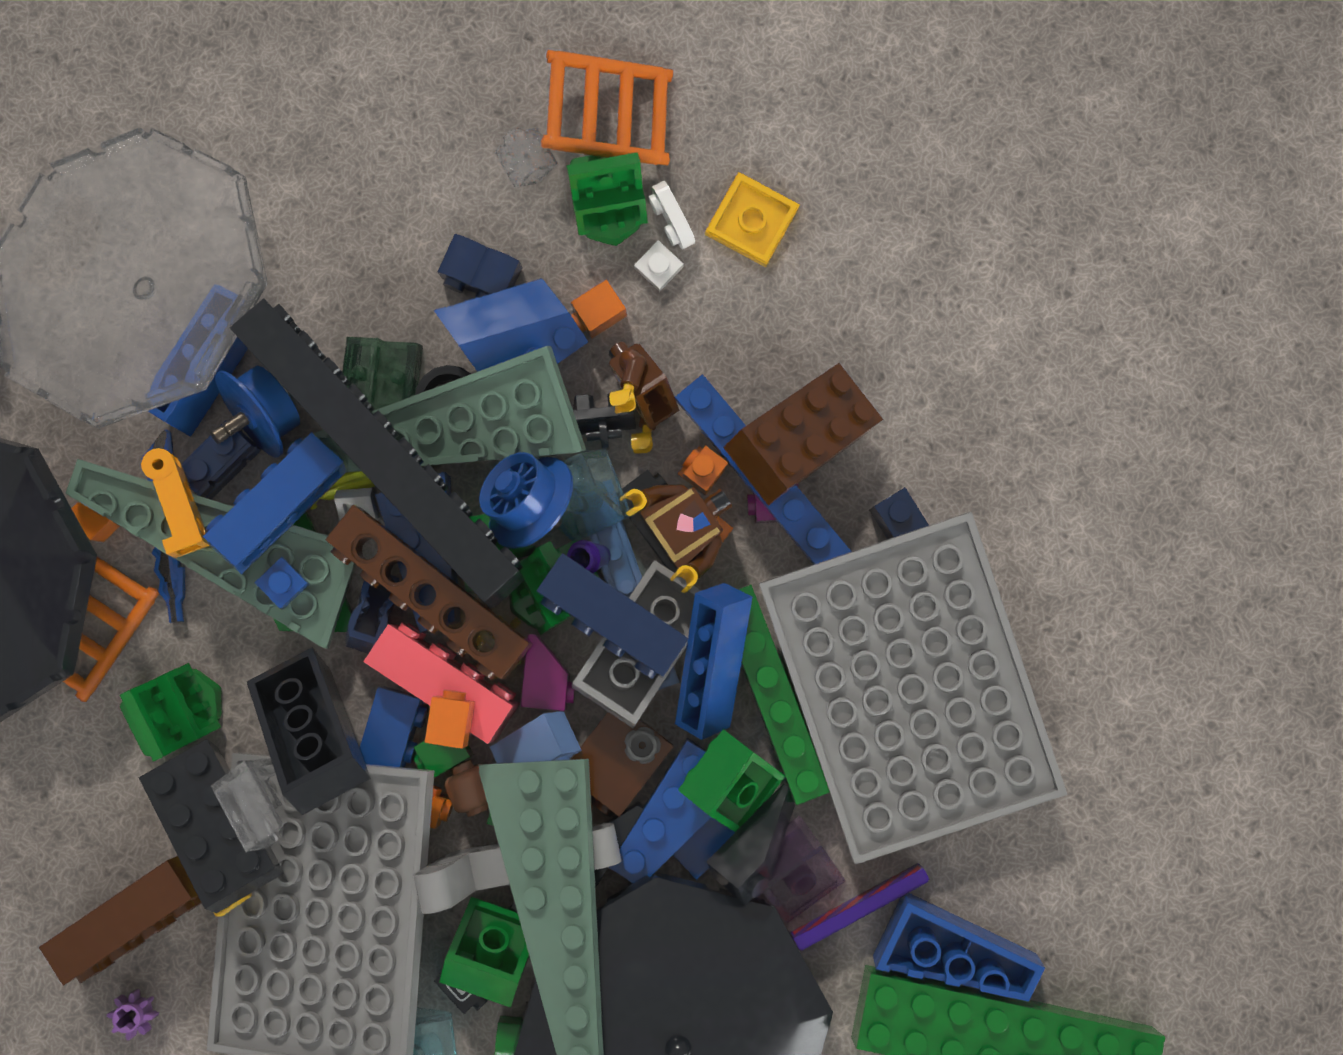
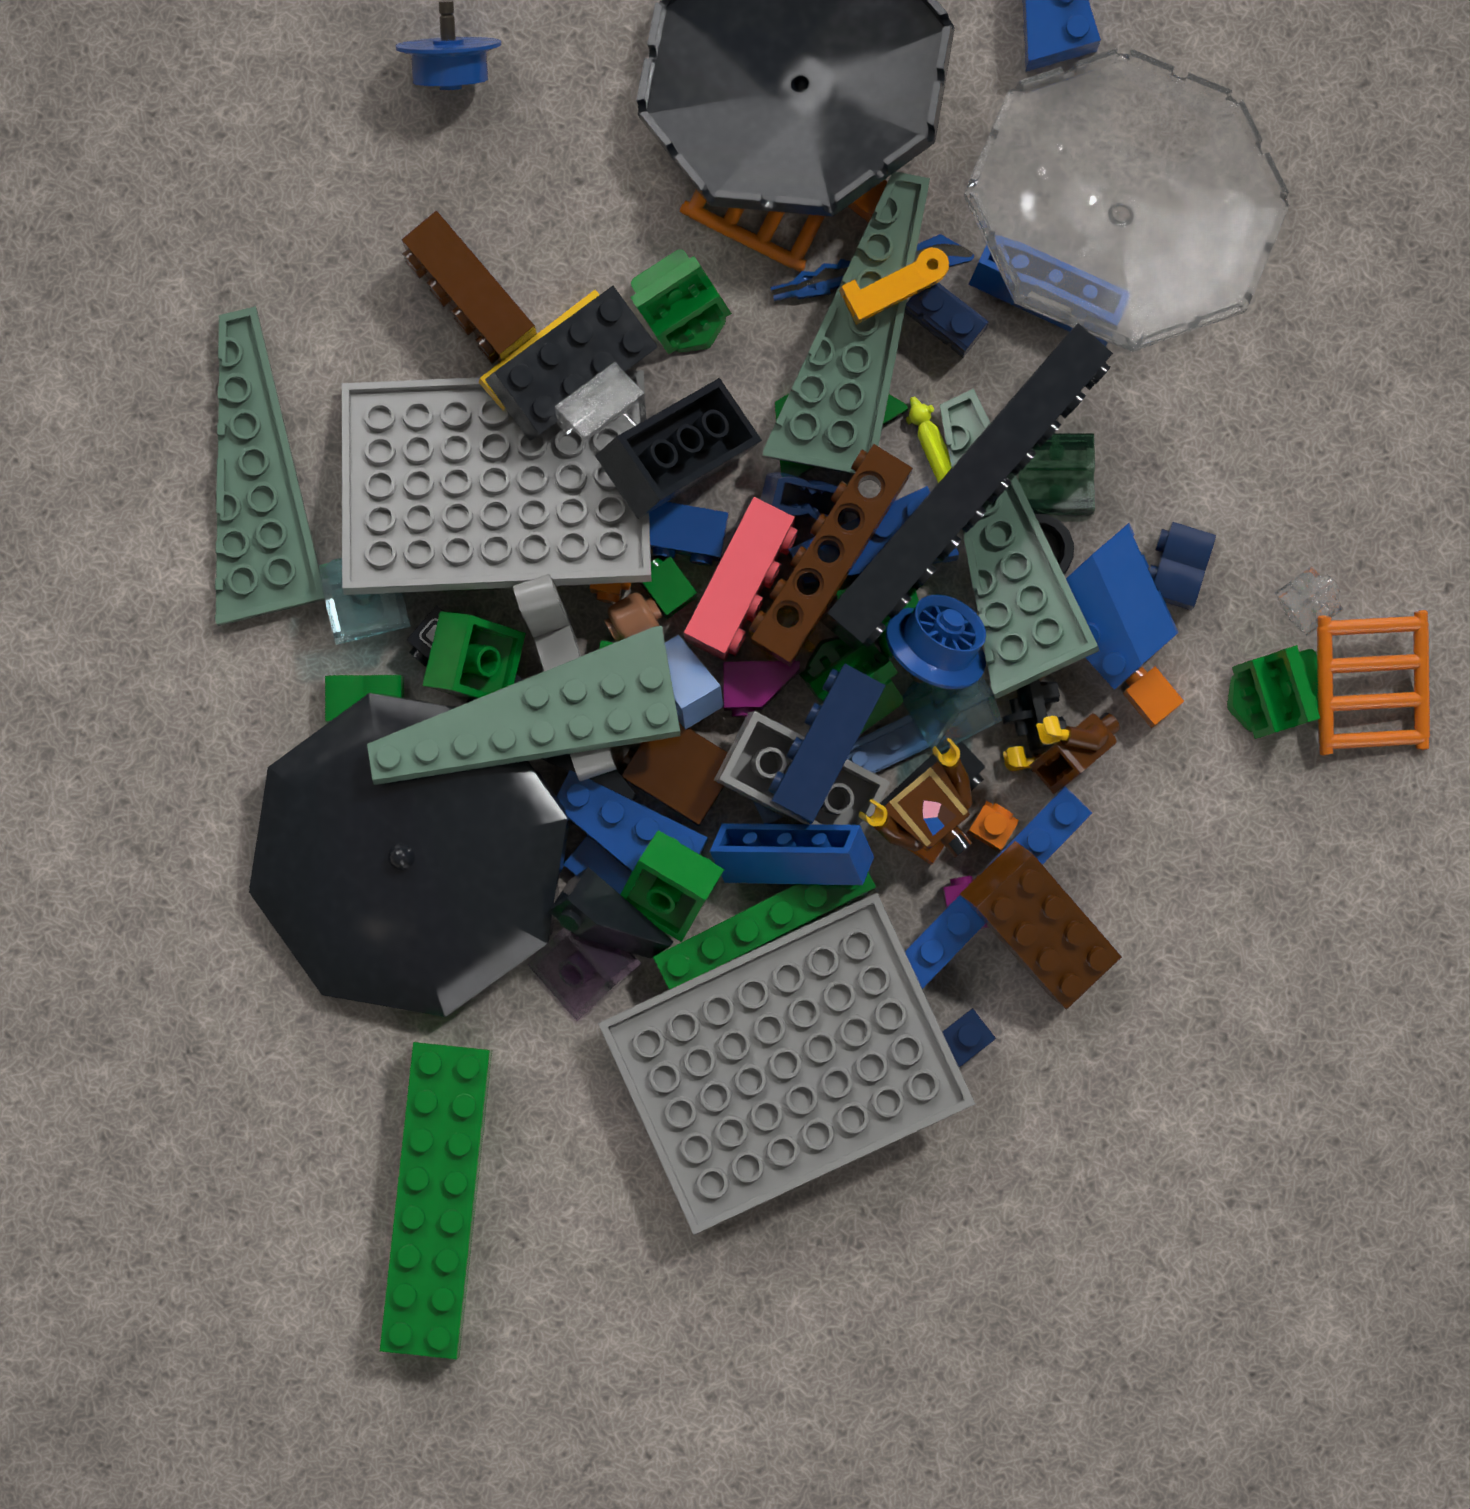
camera: 85 degrees right, 0 degrees up
(122, 1020) = (369, 314): medium lavender gear -> none
(257, 407) = (1004, 353): blue piece -> none
(275, 502) = (907, 386): blue brick -> none
(282, 583) = (824, 402): blue plate -> none
(360, 497) = (919, 458): white plate -> none
(450, 720) = (705, 591): orange brick -> none
(589, 555) = (887, 715): dark purple cone -> none
(632, 742) = (707, 794): dark grey plate -> none
(658, 265) = (1209, 756): white plate -> none
(664, 203) = (1277, 754): white plate -> none
(752, 219) = (1272, 852): yellow tile -> none
(859, 906) = (553, 1036): dark purple tile -> none
(950, 949) = (519, 1137): blue wedge -> none

